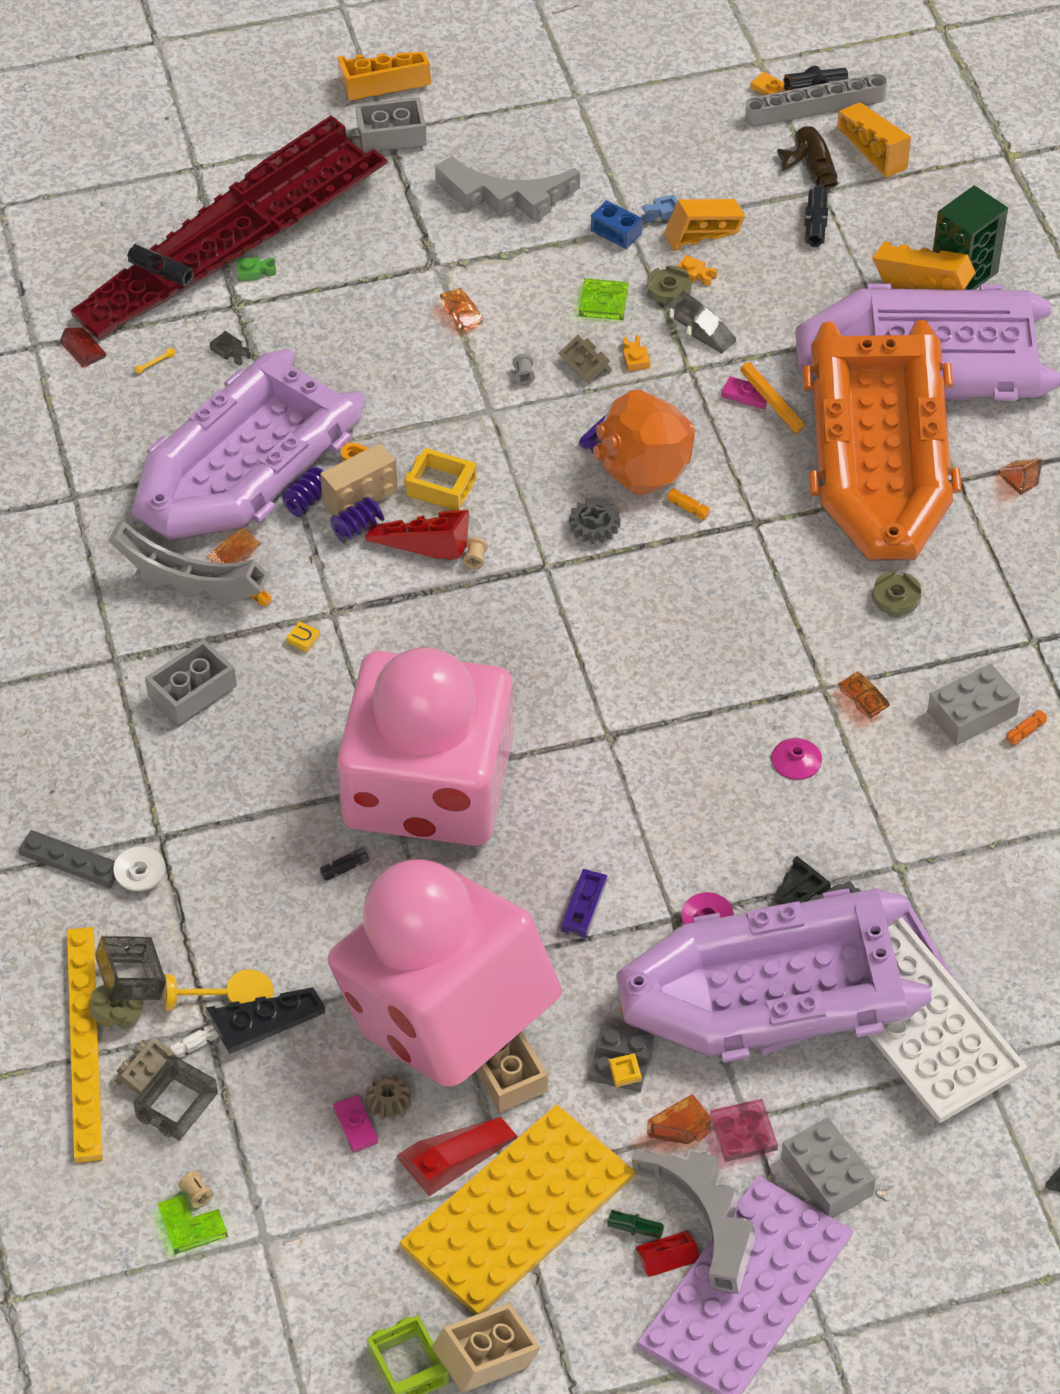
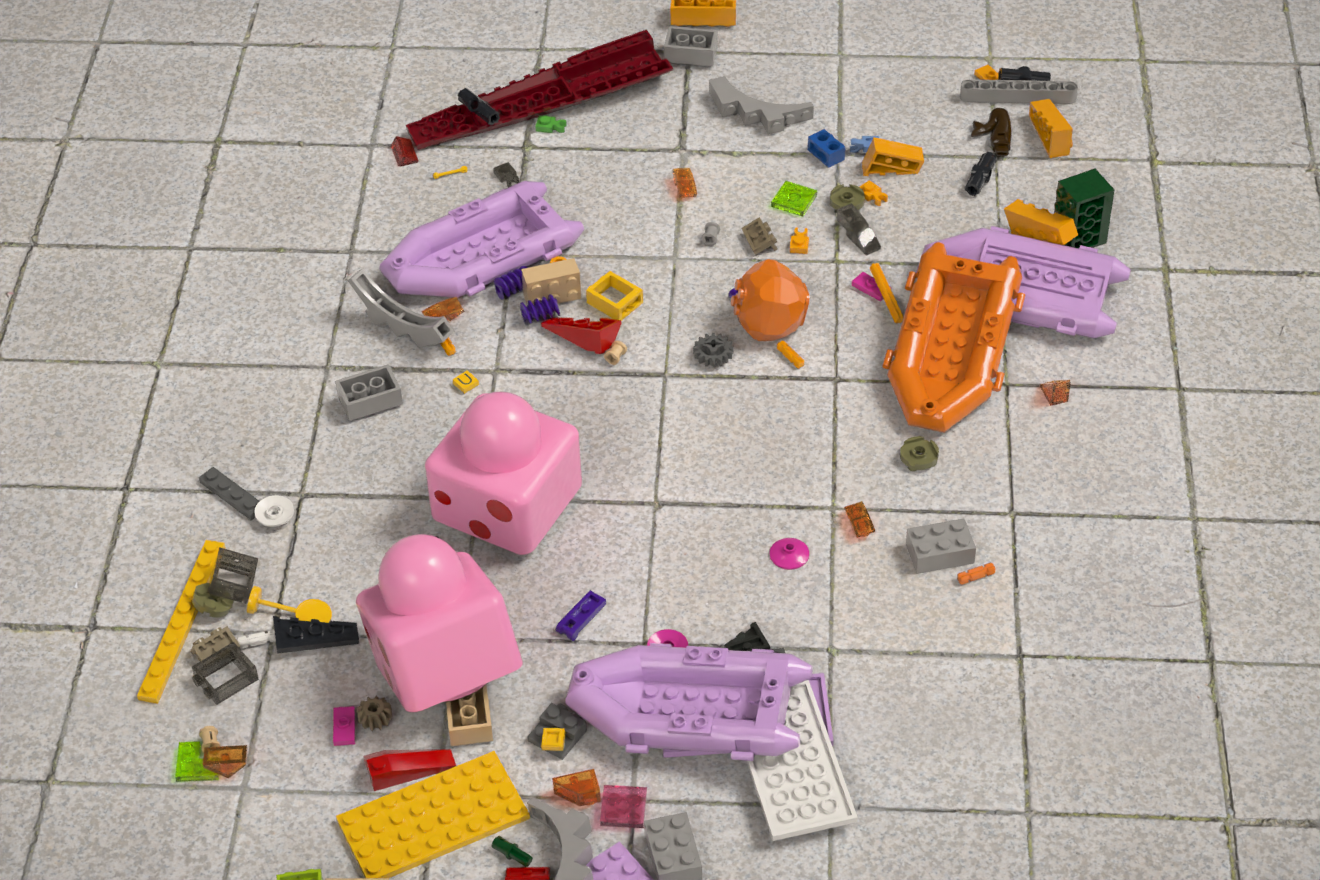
camera: 20 degrees right, 5 degrees down
(233, 1209) = (225, 759): none -> clear orange slope

